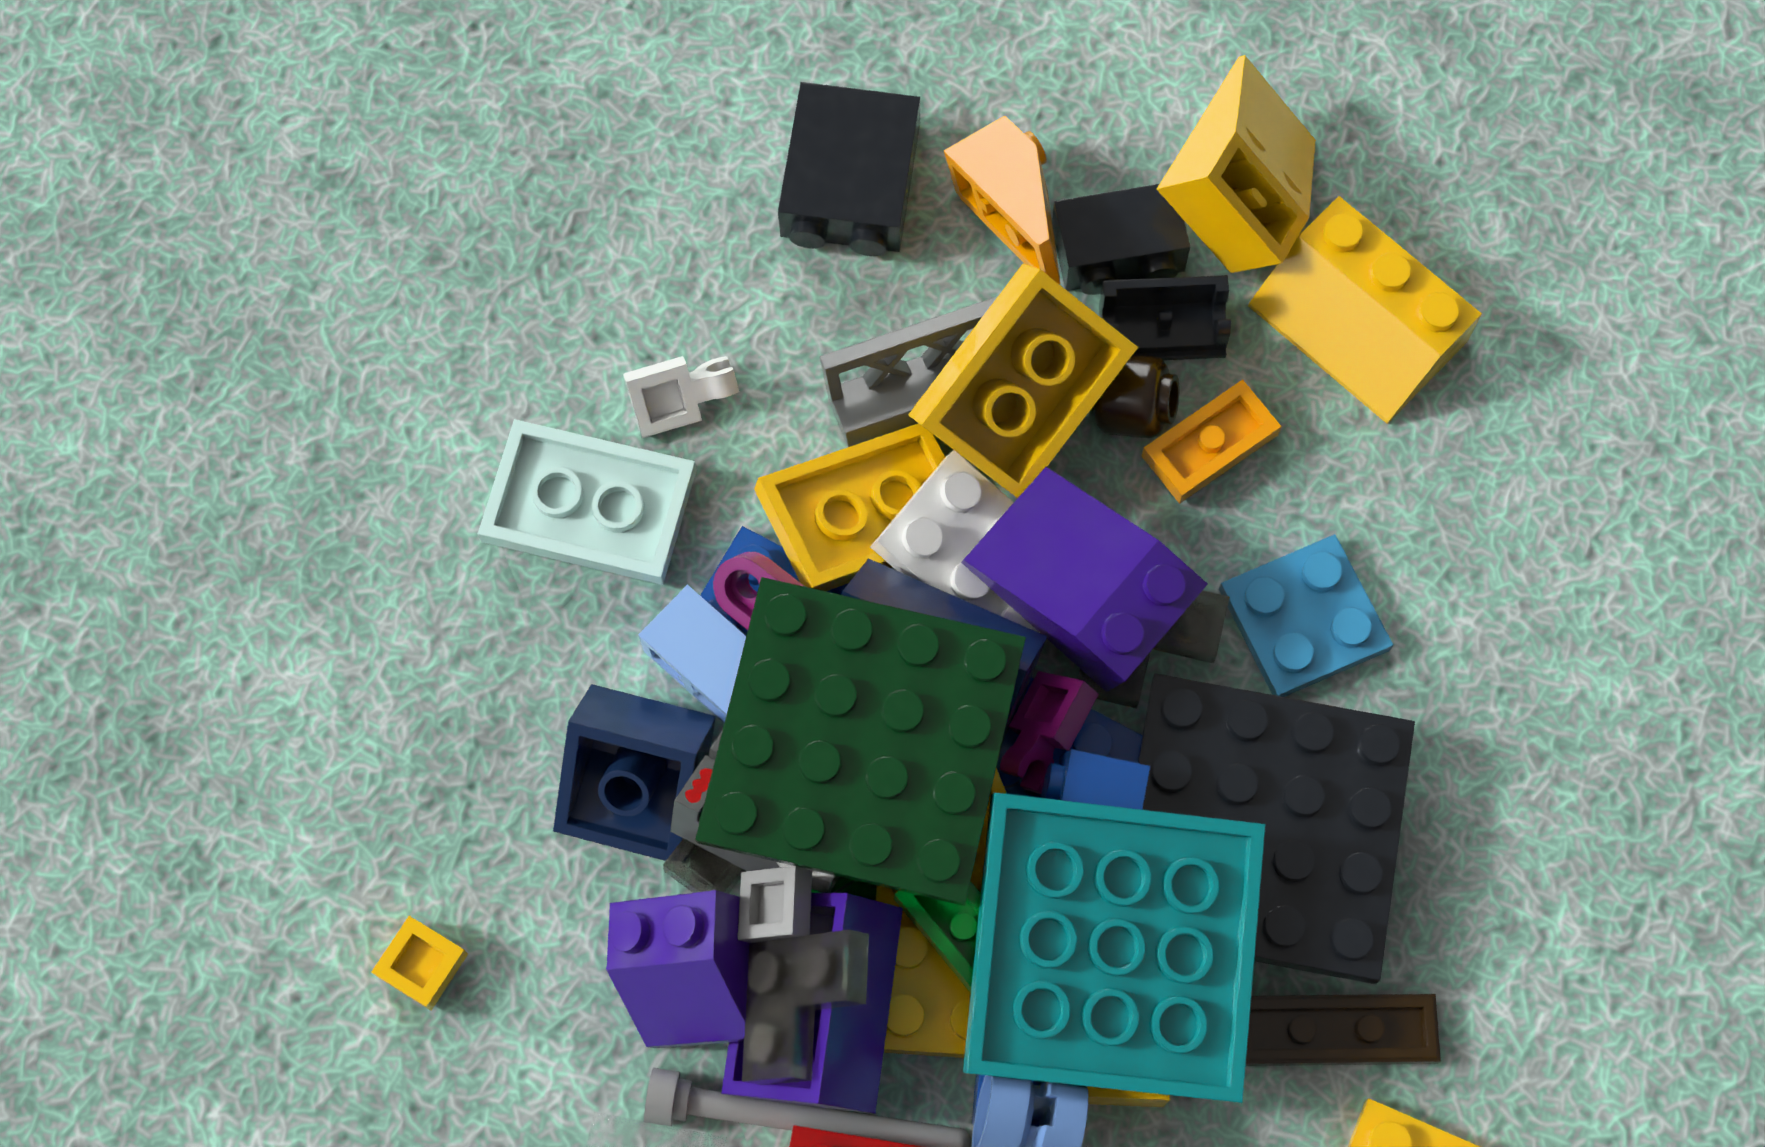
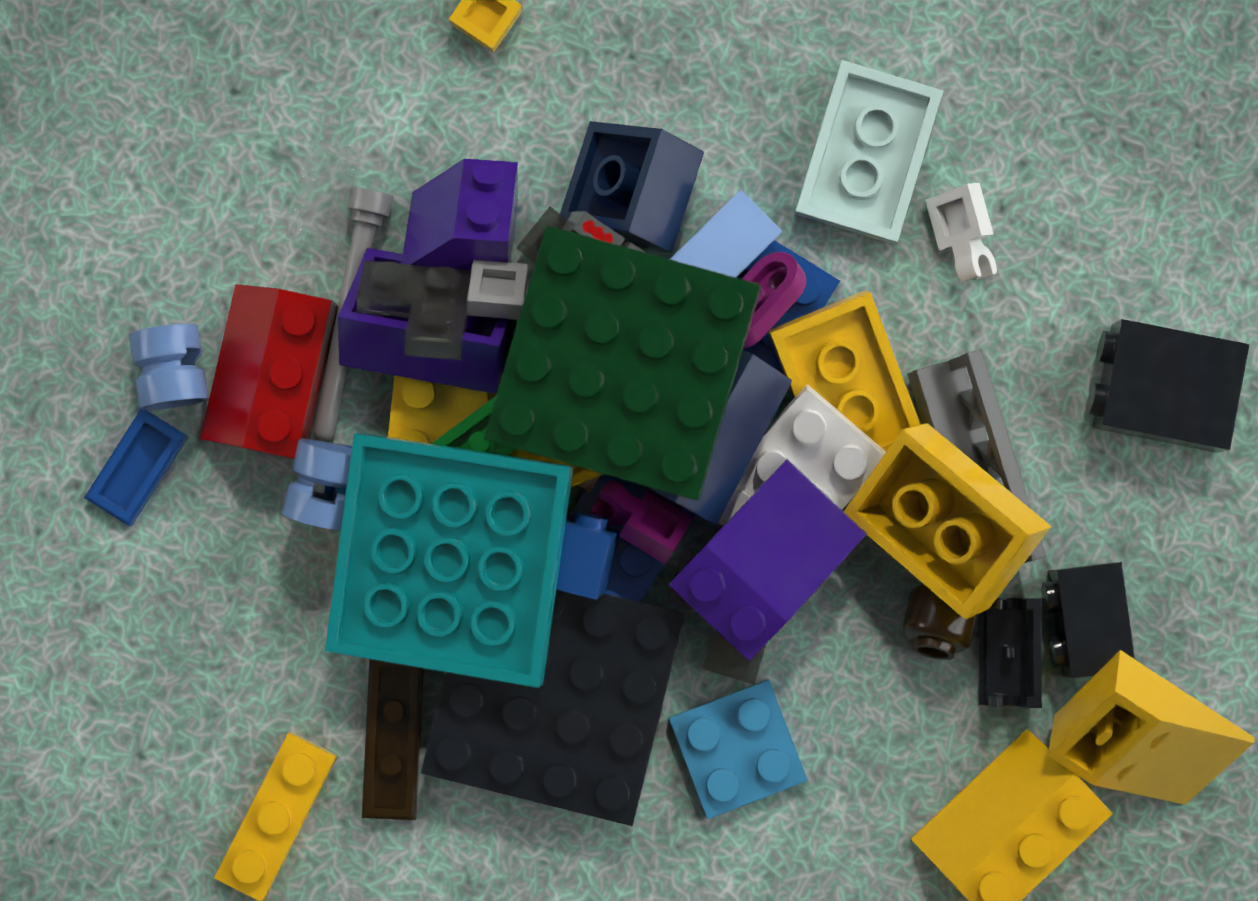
camera: 90 degrees right, 15 degrees up
(1005, 186) = (1138, 525): light orange slope -> none
(1211, 441) = (897, 683): light orange plate -> none

